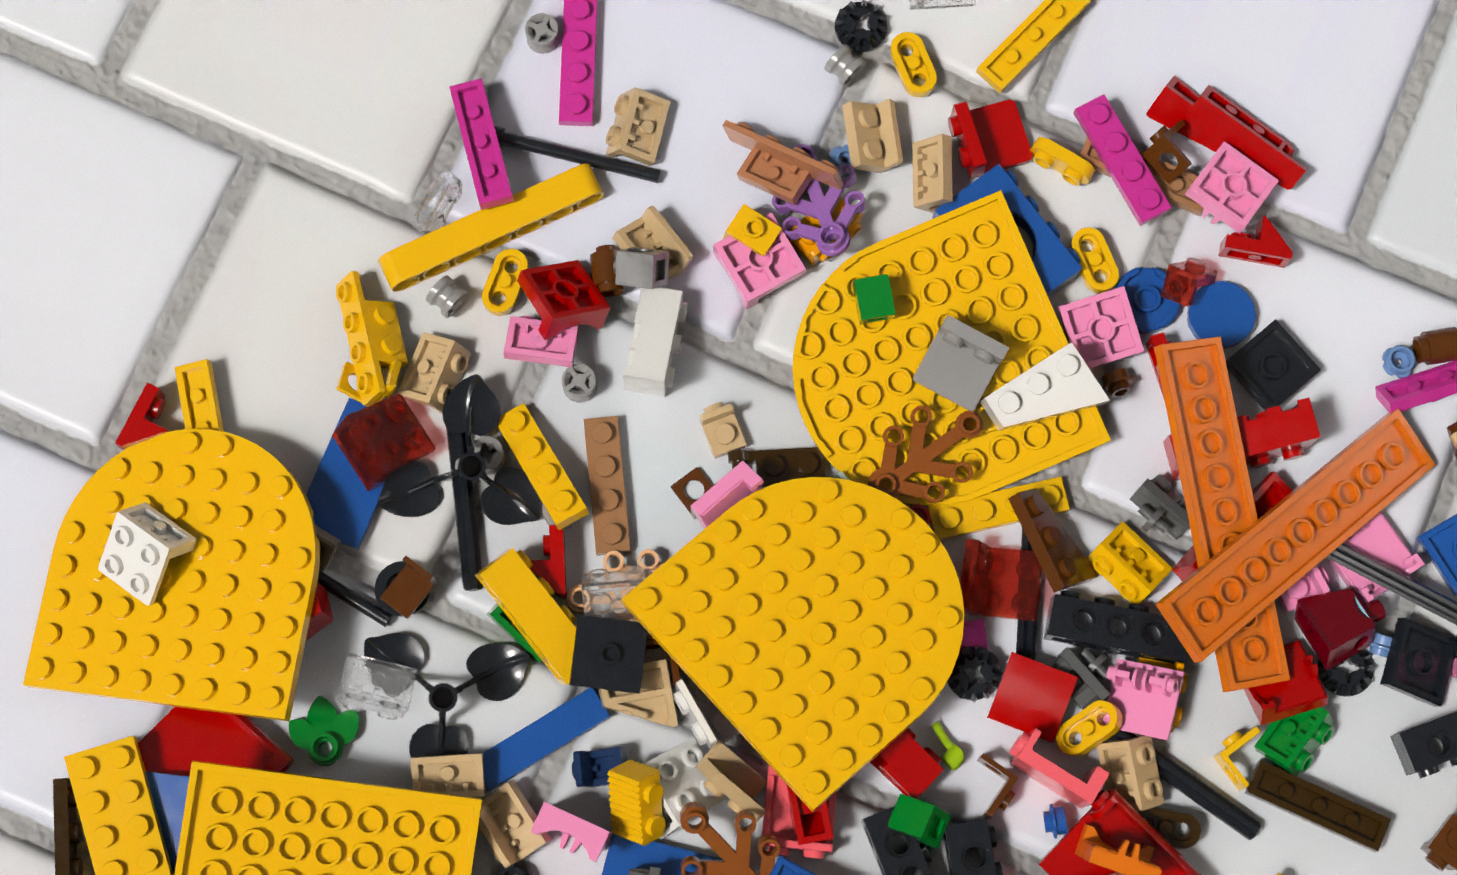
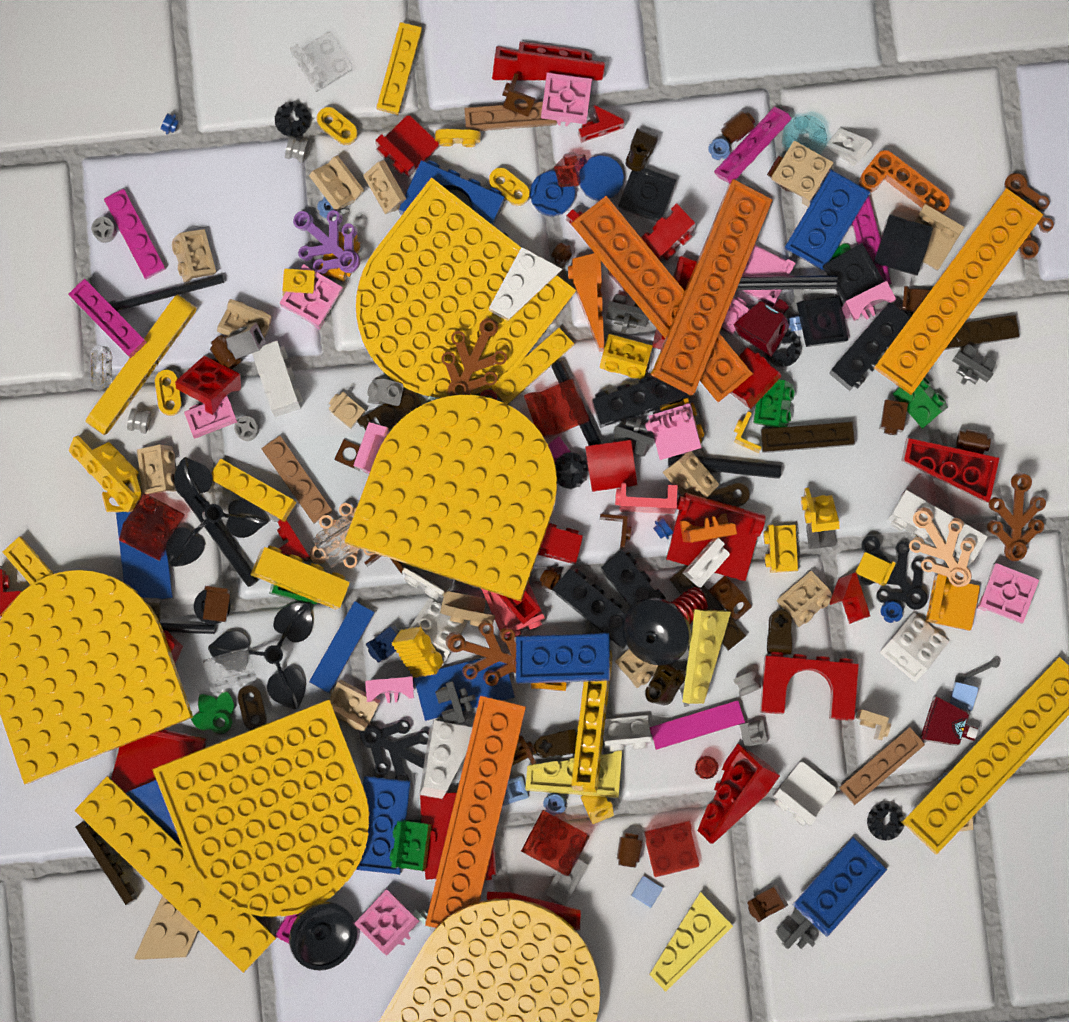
camera: 25 degrees left, 5 degrees up
(141, 549) = (50, 668): white bracket -> none
(377, 753) = (251, 708): none -> dark brown plate
(449, 774) = (301, 696): tan bracket -> none
(493, 461) = (222, 501): light grey wheel -> none
(608, 654) = (354, 577): black plate -> none
(655, 698) = (383, 588): tan wing -> none
(778, 168) = (291, 236): nougat bracket -> none
(785, 434) = (385, 391): none -> light grey bracket
(867, 802) = (549, 578): none -> reddish brown plate
(873, 299) = (392, 284): green panel -> none
(919, 820) = (584, 572): green panel -> none
(954, 756) = (585, 524): lime hand -> none
(960, 363) = (463, 295): light grey bracket -> none
(1053, 546) = (574, 370): reddish brown wing -> none
(1090, 726) = (653, 464): yellow plate -> none
(1101, 327) = (534, 226): bright pink piece -> none
(1122, 160) = (492, 117): dark pink plate -> none
(1131, 435) = (587, 283): none -> orange wedge
(1294, 305) = (640, 149): none -> dark brown piece

